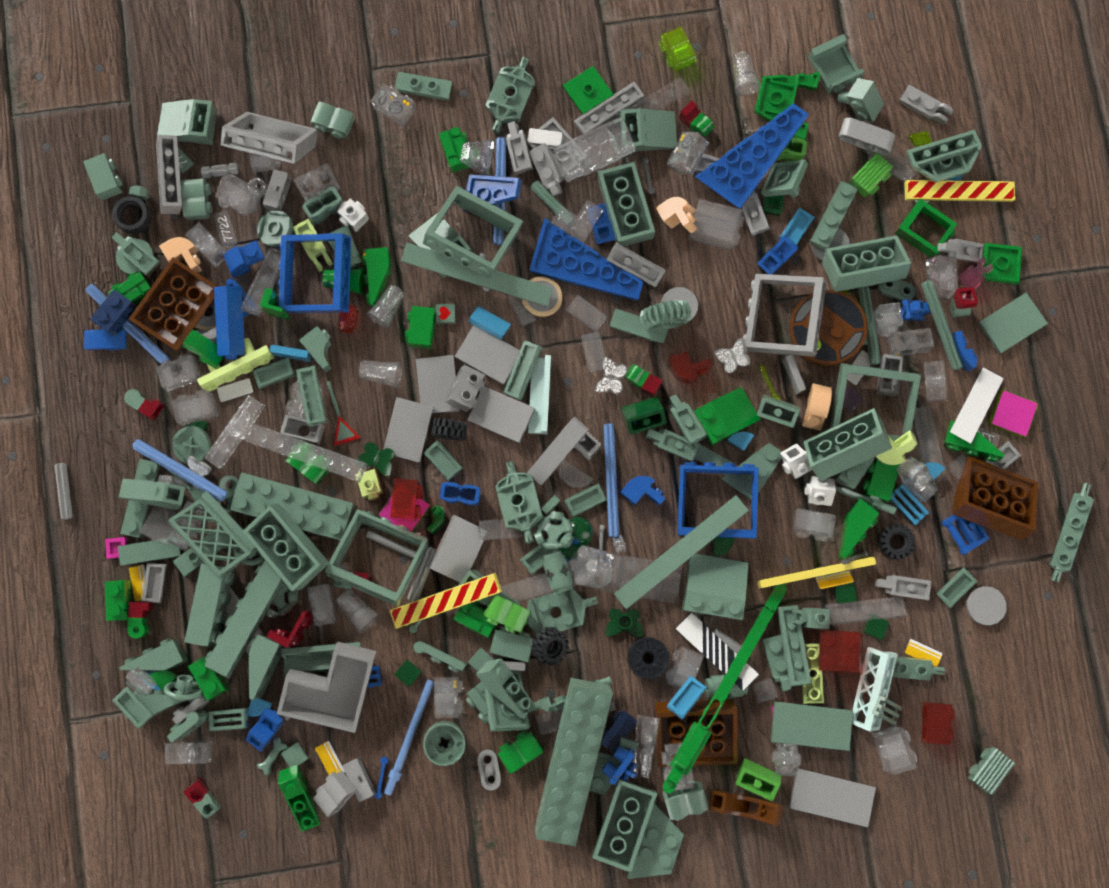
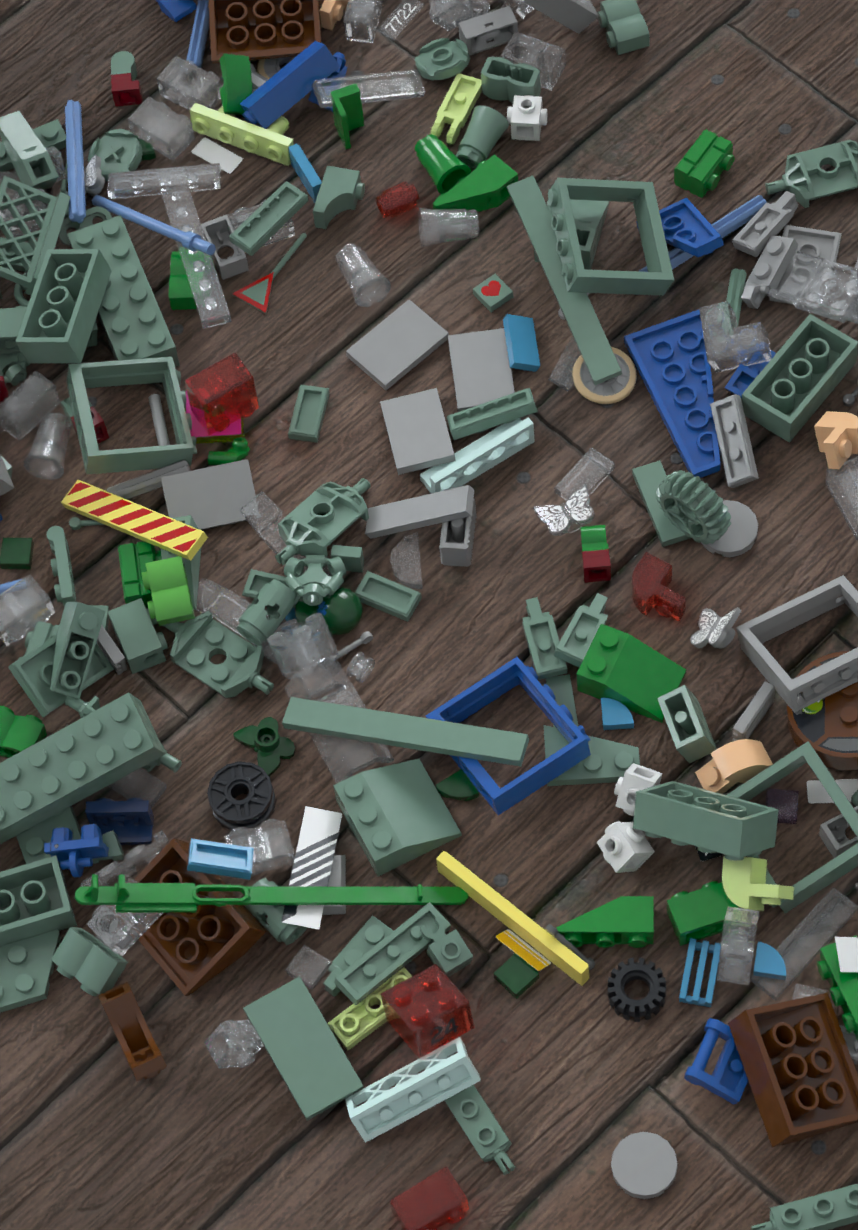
camera: 60 degrees right, 20 degrees down
(241, 258) = (376, 49): blue brick -> none
(274, 373) = (266, 174): sand green tile -> none
(293, 448) = (188, 239): none -> medium blue bar
(341, 273) = (433, 147): blue window -> none
(370, 485) = (212, 350): yellowish green brick -> none
(377, 458) = (252, 339): dark green animal -> none
(393, 104) = (699, 67): clear brick -> none
(408, 429) = (315, 349): light grey tile -> none
(421, 327) = (451, 277): green brick -> none
(423, 86) = (753, 83): sand green plate -> none
(449, 429) = (349, 385): black tyre -> none
(466, 388) = (415, 369): light grey brick -> none
(466, 494) = (280, 451): blue brick -> none
(478, 155) = (716, 186): clear wing -> none
(544, 136) = (807, 239): white sticker -> none
(557, 650) = (167, 654): black tyre -> none
(586, 313) = (626, 437): clear tile -> none
(611, 480) = (437, 605): medium blue axle -> none
(642, 486) = (452, 639): blue brick -> none
(643, 415) = (547, 578): dark green brick -> none
(758, 779) = (181, 1027): bright green brick -> none
(762, 368) = (731, 677): clear neon green hinge -> none
(813, 524) = (575, 871): clear brick -> none
(832, 797) = (229, 1145): light grey tile -> none
(851, 477) = (687, 868): sand green brick -> none
(866, 610) = (512, 1015): clear tile -> none
(873, 501) = (665, 924): sand green sword -> none
(876, 628) = (501, 1045): dark green tile -> none
(893, 713) = (400, 1147): sand green tile -> none
(894, 749) = (348, 1165): clear brick -> none
(905, 587) = (584, 1042): light grey hinge -> none
(921, 651) = (514, 1125): yellow sticker -> none
(956, 587) = (637, 1109): sand green tile -> none

